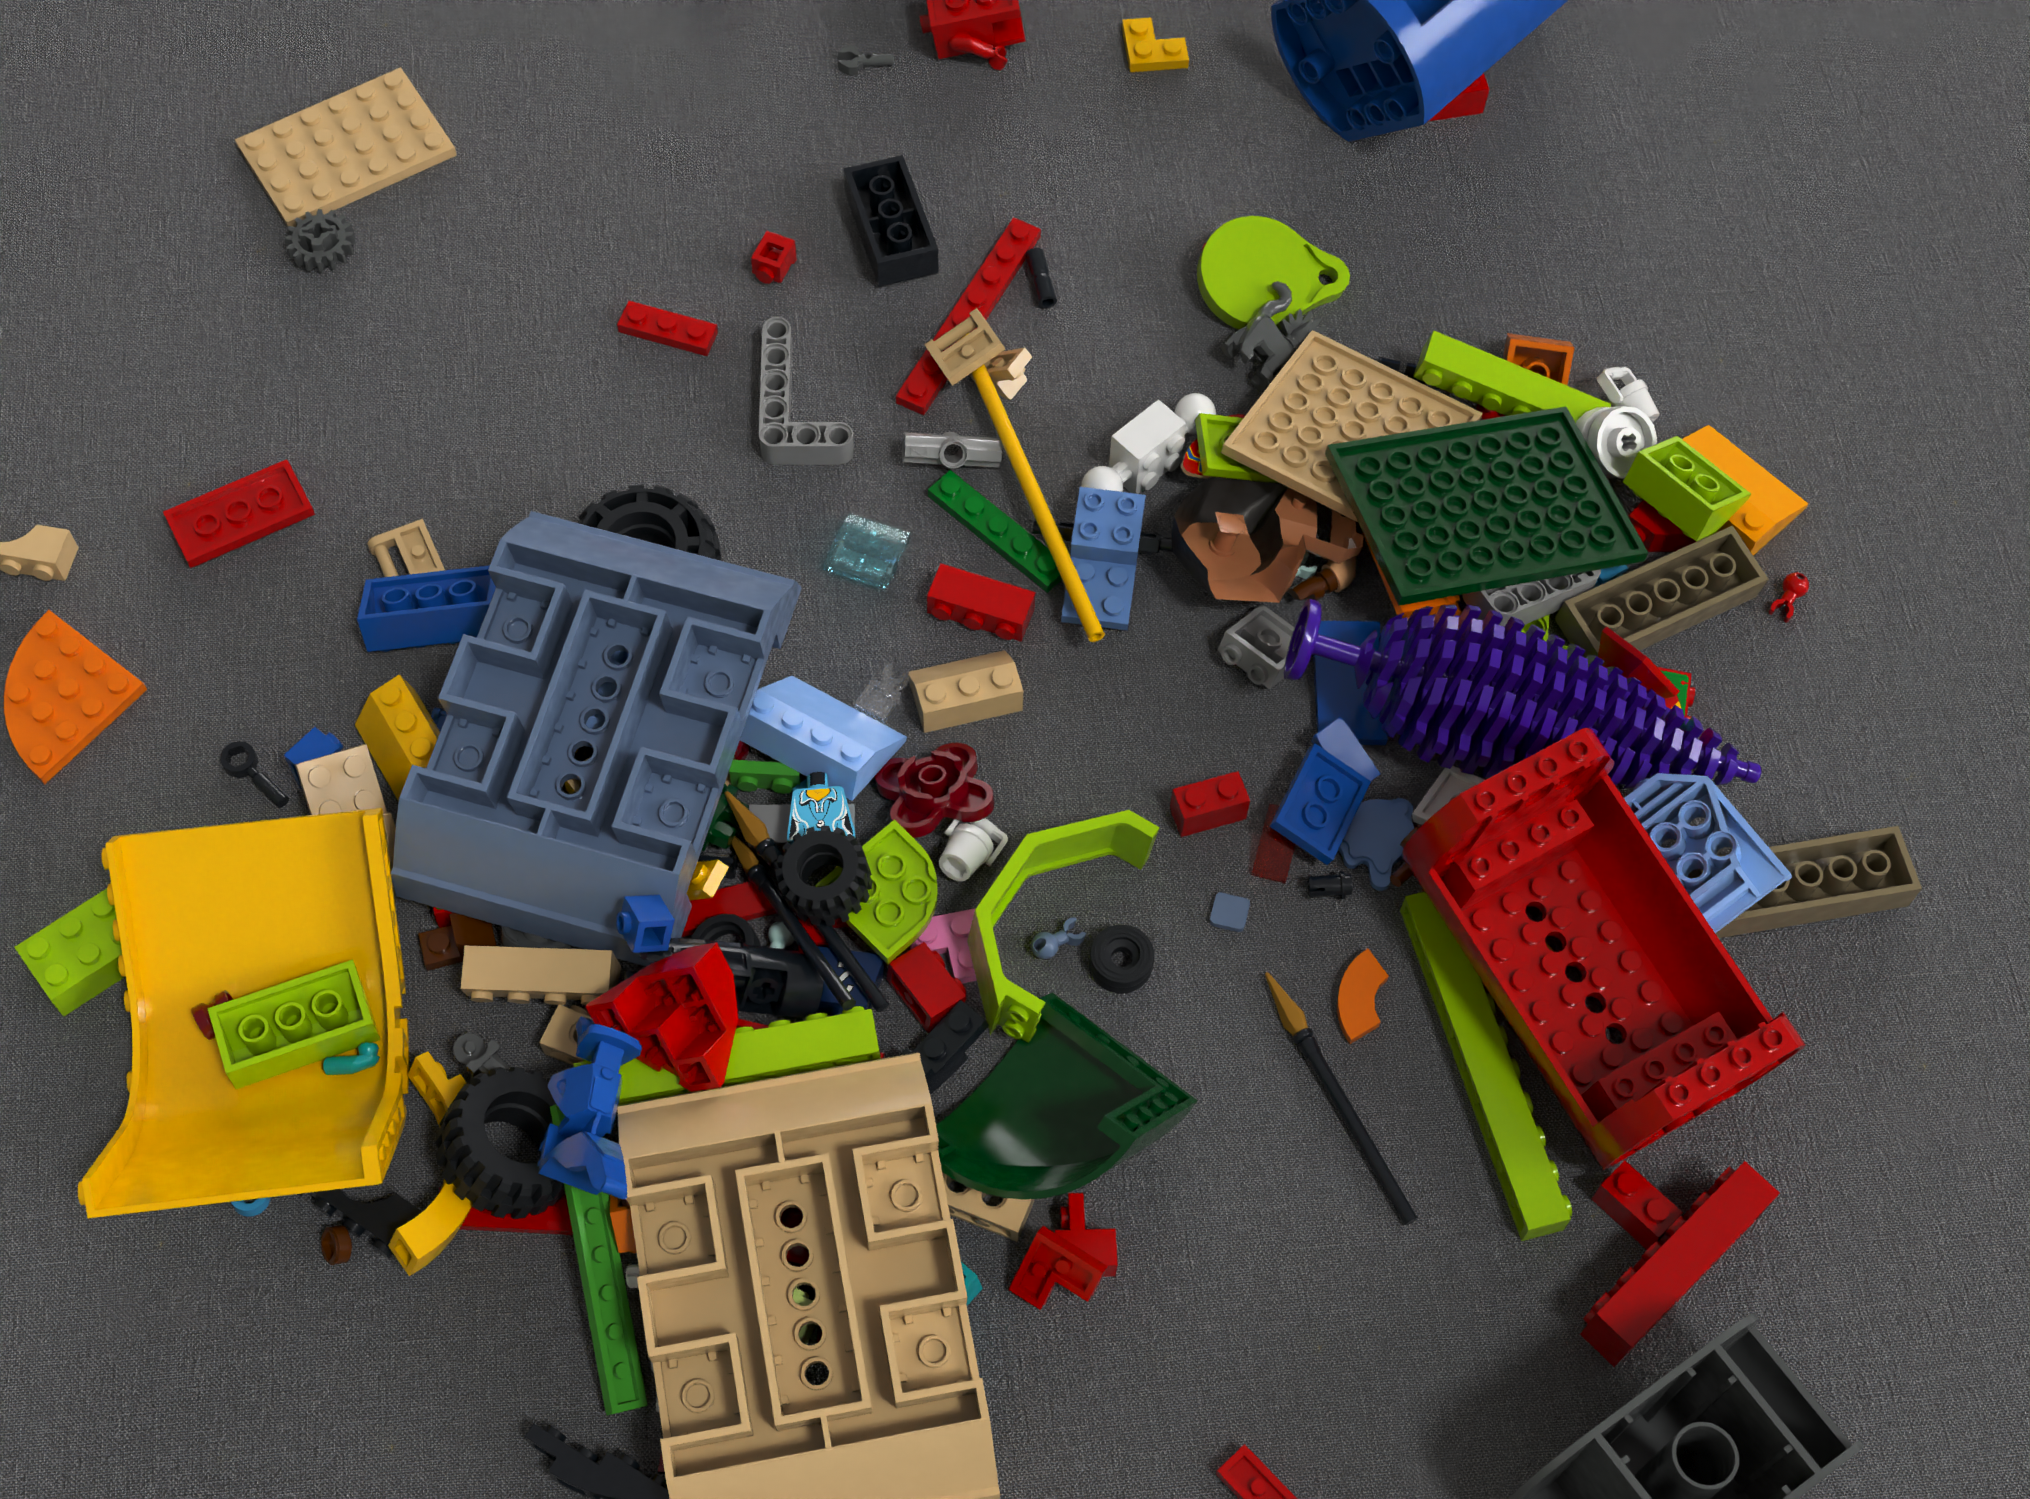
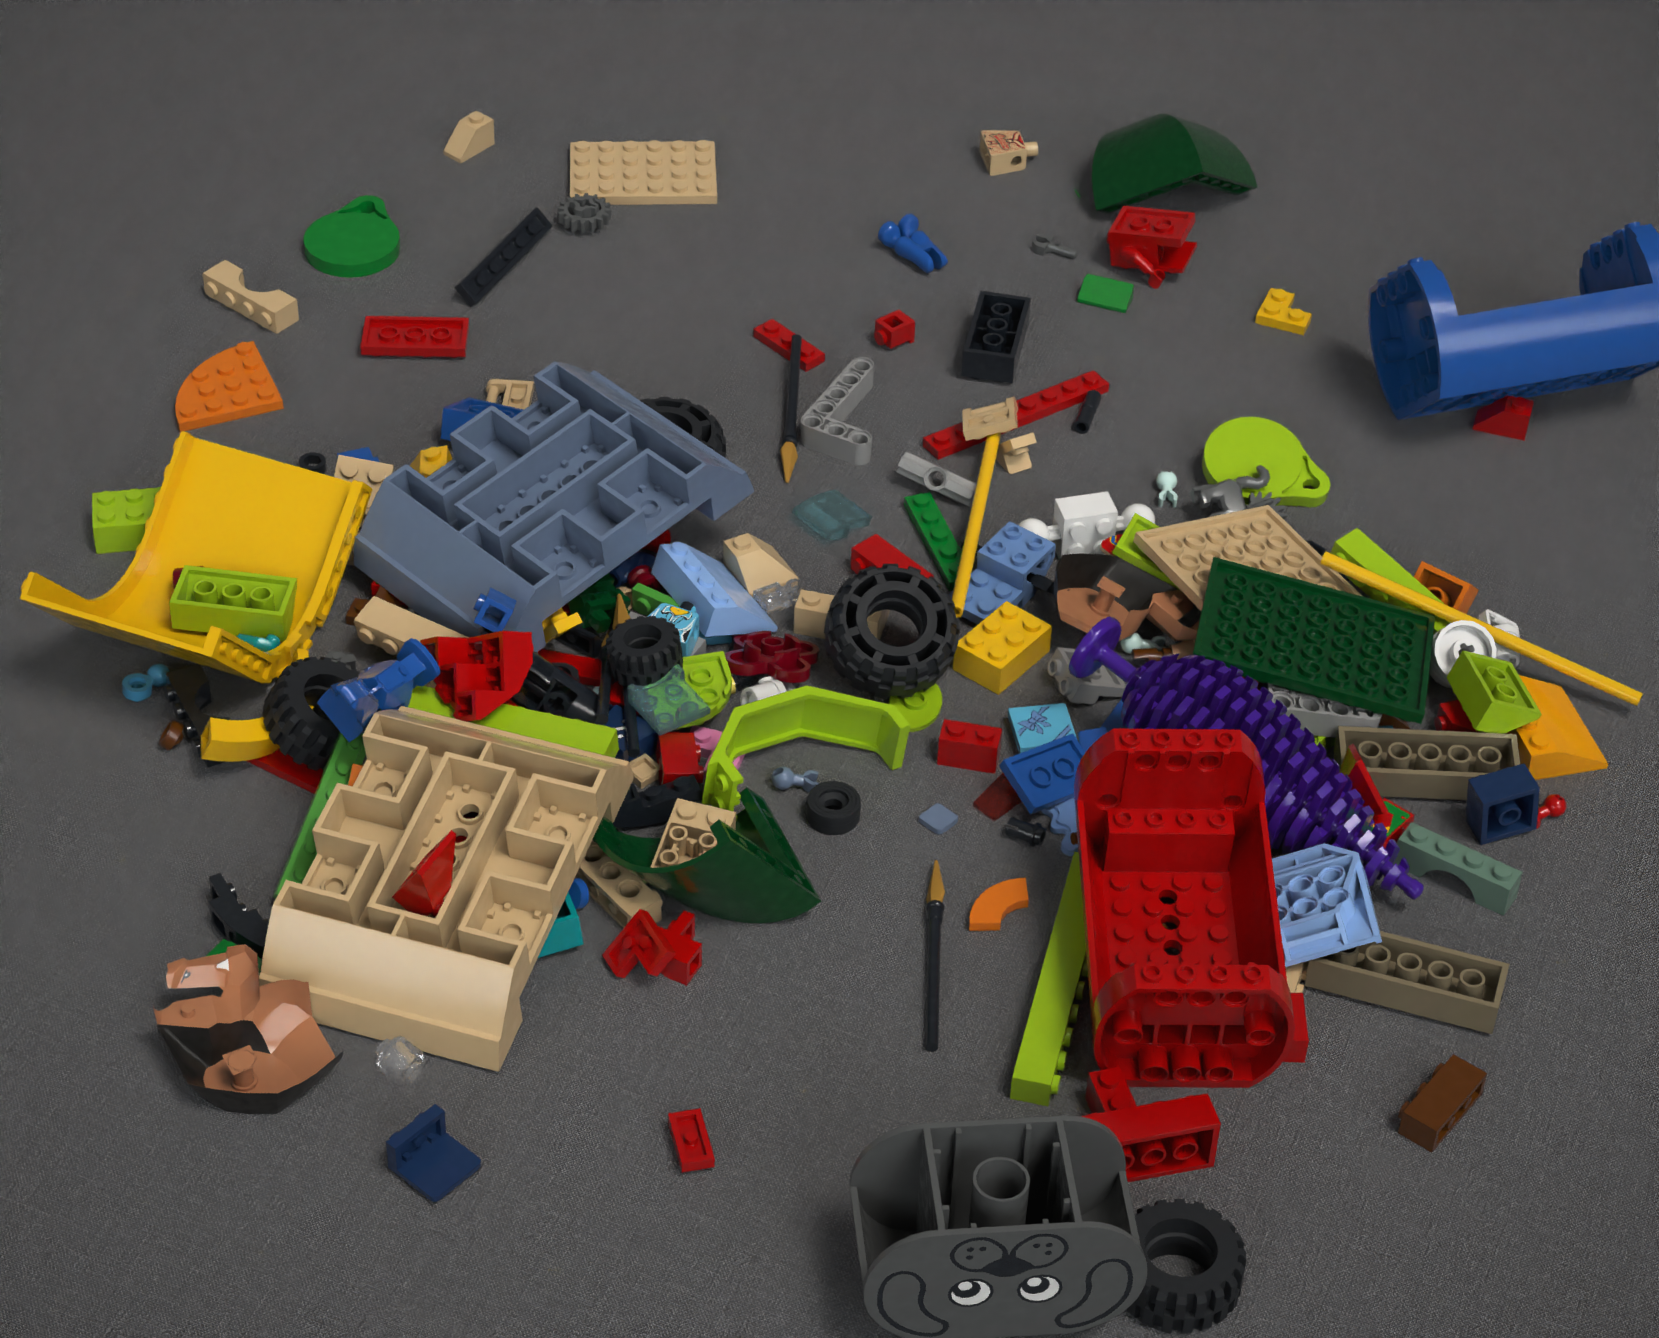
camera: 30 degrees right, 20 degrees down
(69, 401) = (353, 239): none -> green piece
(112, 184) = (470, 137): none -> tan slope
(267, 348) = (503, 256): none -> black plate
(717, 125) = (912, 244): none -> blue piece
(753, 462) = (789, 442): none -> black piece
(822, 1352) = (430, 880): none -> red slope
(834, 663) = (755, 563): none -> tan slope
(889, 929) = (668, 702): none -> clear light blue piece
(895, 1014) = (644, 770): none -> tan tile
(960, 102) = (1106, 293): none -> green slope
(1012, 716) = (883, 667): none -> black tyre
(1024, 1100) = (689, 832): none -> tan slope
(1110, 768) = (921, 708): none -> lime piece
(1159, 651) = (1002, 647): none -> yellow brick
(1179, 337) = (1166, 482): none -> light aqua arm
(1263, 739) = (1039, 724): none -> medium azure tile
(1612, 399) = (1500, 637): none -> yellow piece
(1764, 617) = (1502, 804): none -> dark blue brick
(1800, 717) = (1490, 880): none -> sand green arch
(1858, 1347) = (1198, 1235): none -> black tyre
(1922, 1023) = (1441, 1102): none -> reddish brown brick

